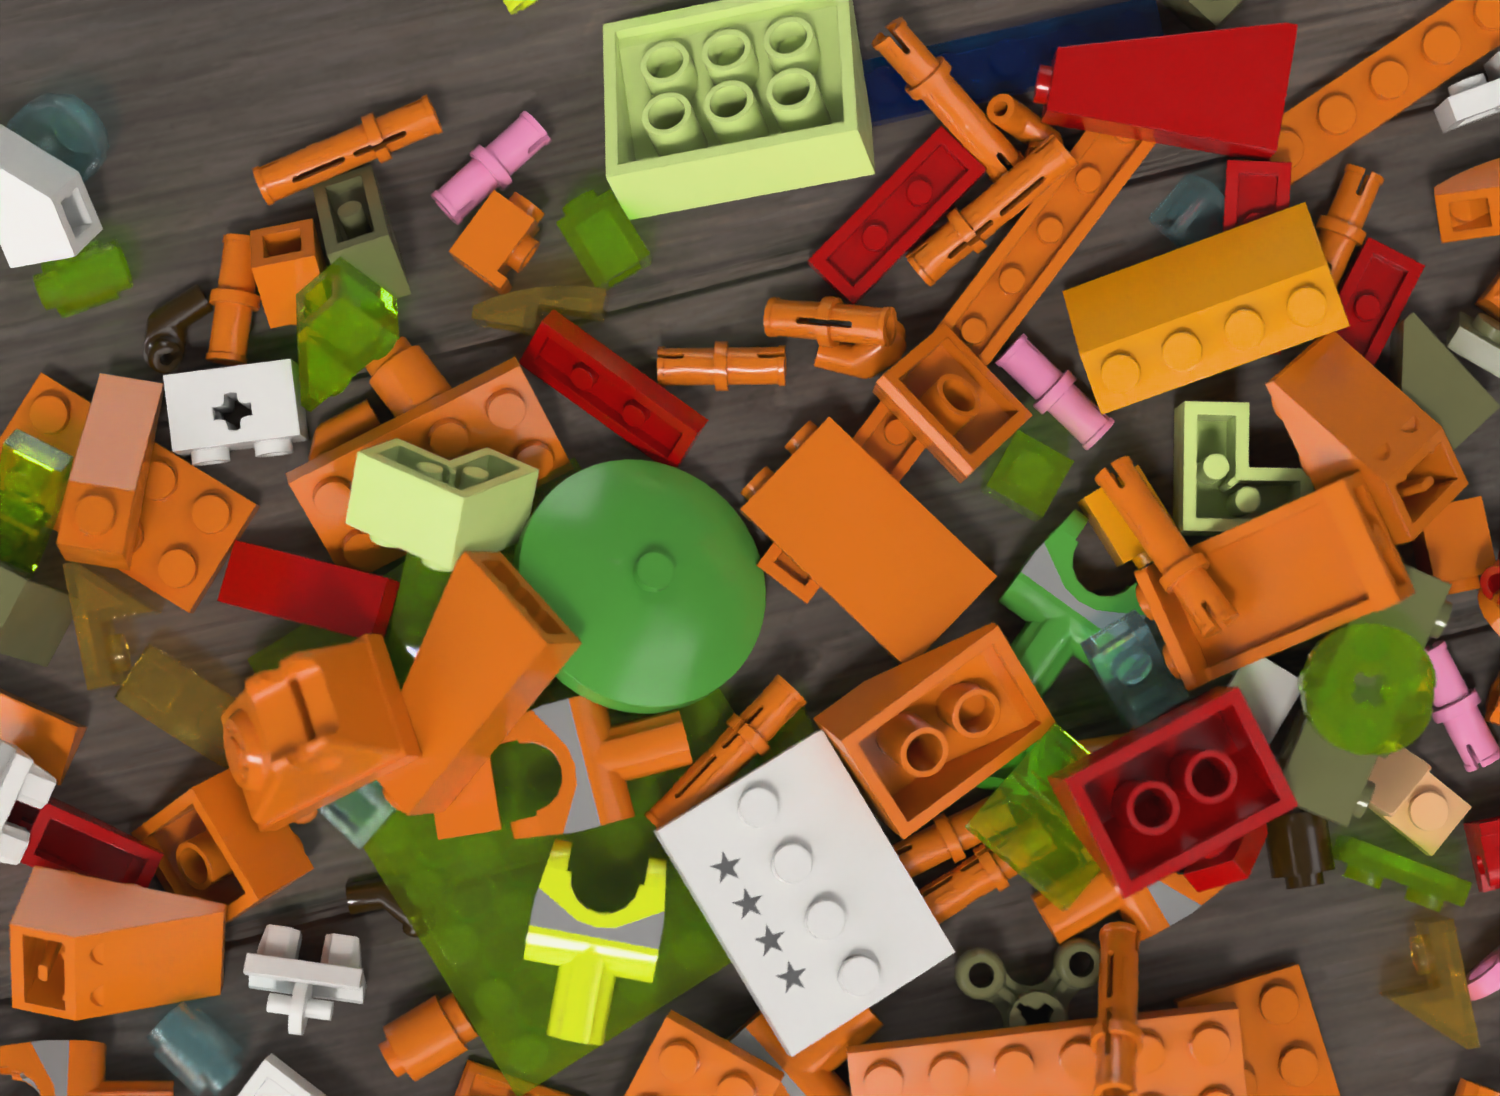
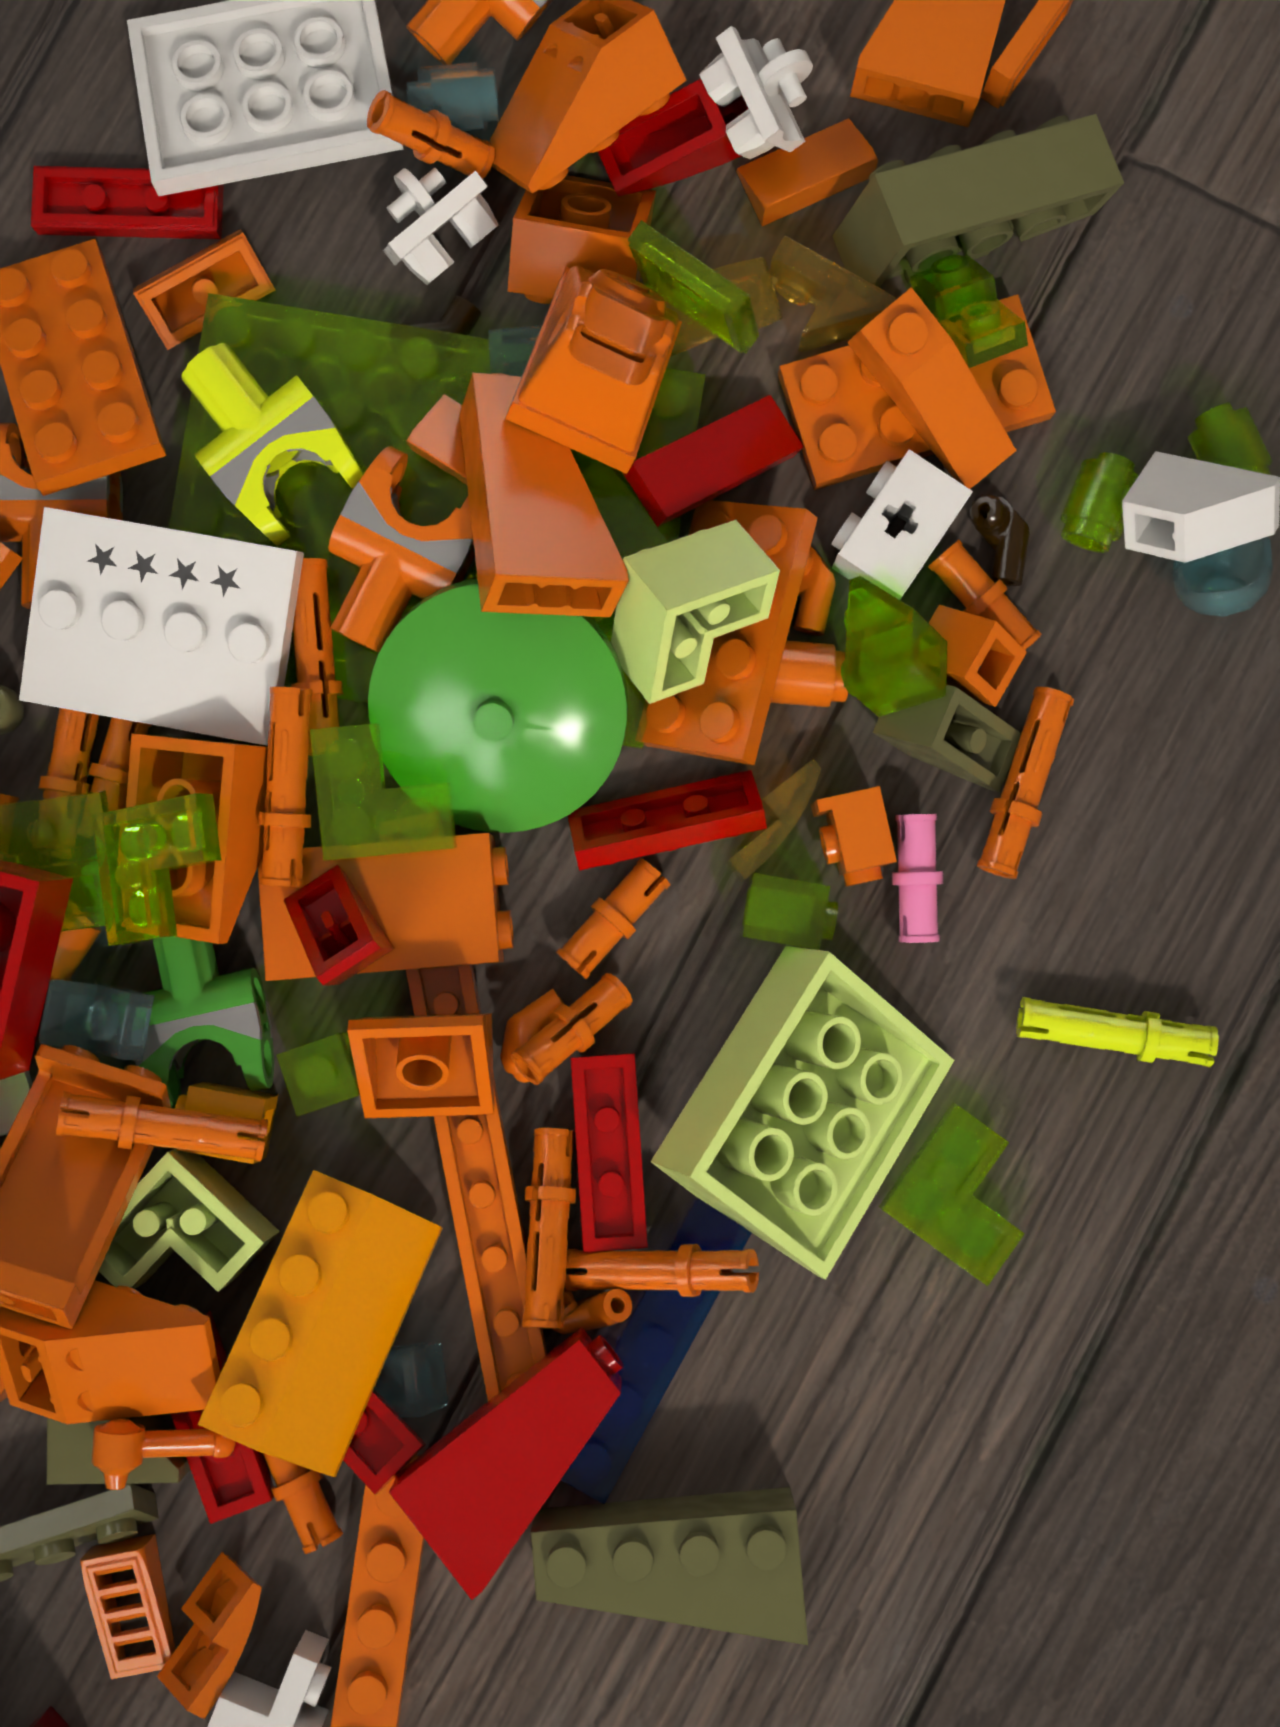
camera: 135 degrees right, 0 degrees up
(194, 712) = (694, 288): none -> clear neon green tile
(245, 1033) = (429, 135): none -> orange pin
(427, 1037) = (314, 267): orange brick -> none
(809, 610) = (358, 811): none -> clear neon green plate
(850, 675) = (286, 787): none -> orange pin
(909, 555) = (336, 927): none -> red slope
(986, 745) = (134, 861): none -> clear neon green plate
(1054, 391) = (371, 1151): bright pink pin -> none
(1419, 372) = (123, 1445): none -> orange piece

